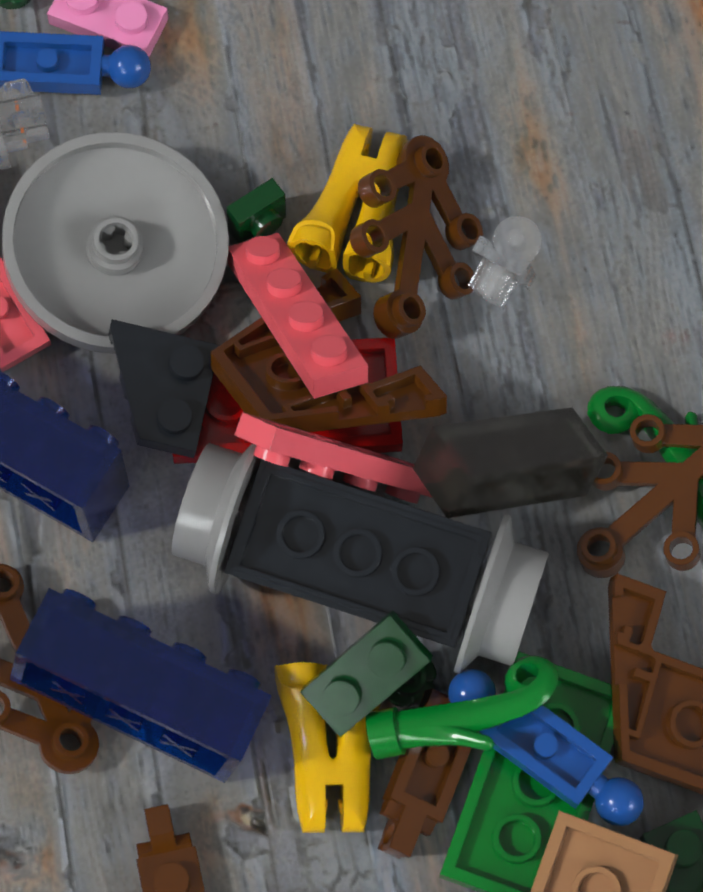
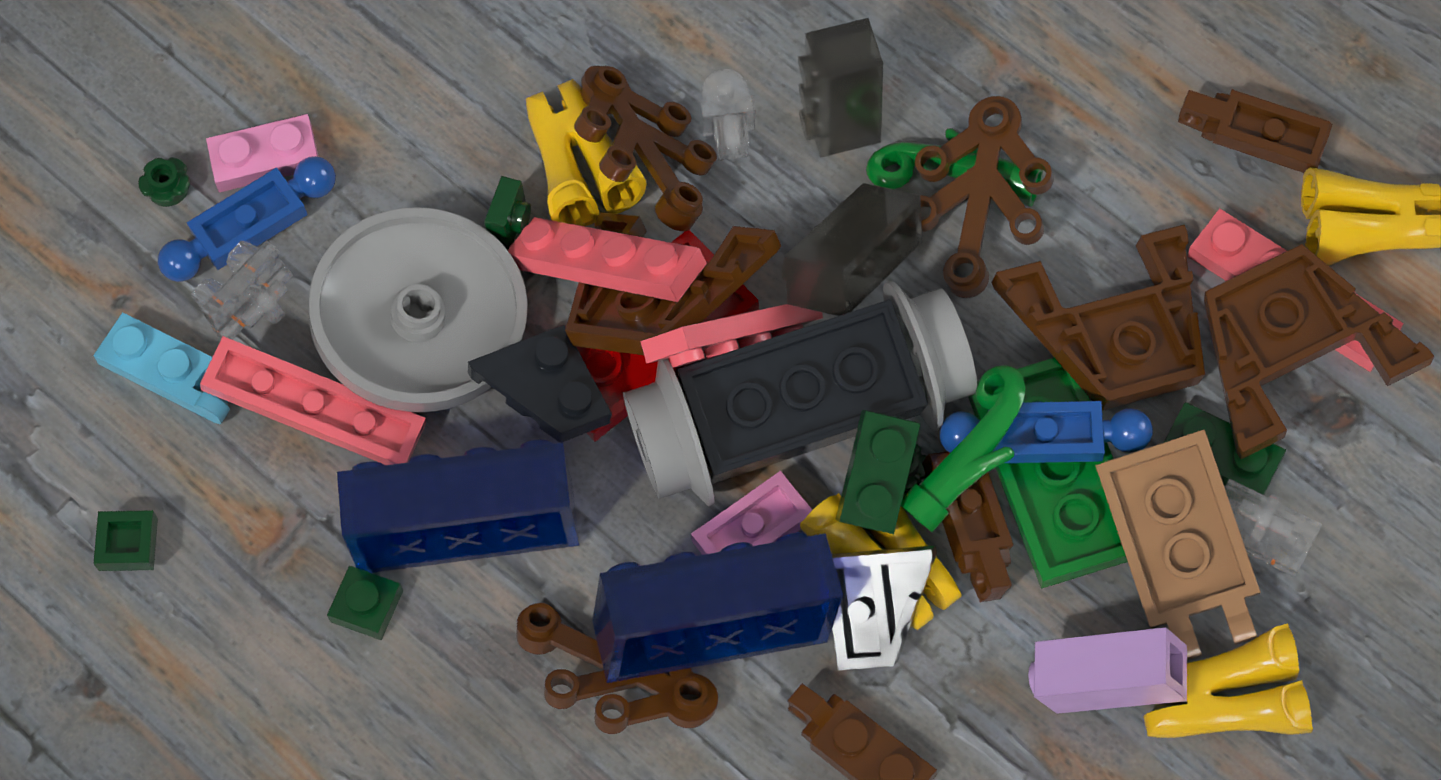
camera: 30 degrees left, 5 degrees down
(242, 634) = (756, 518): none -> bright pink plate
(280, 783) = (878, 603): none -> wing
(612, 309) = (841, 87): none -> clear smoke brick

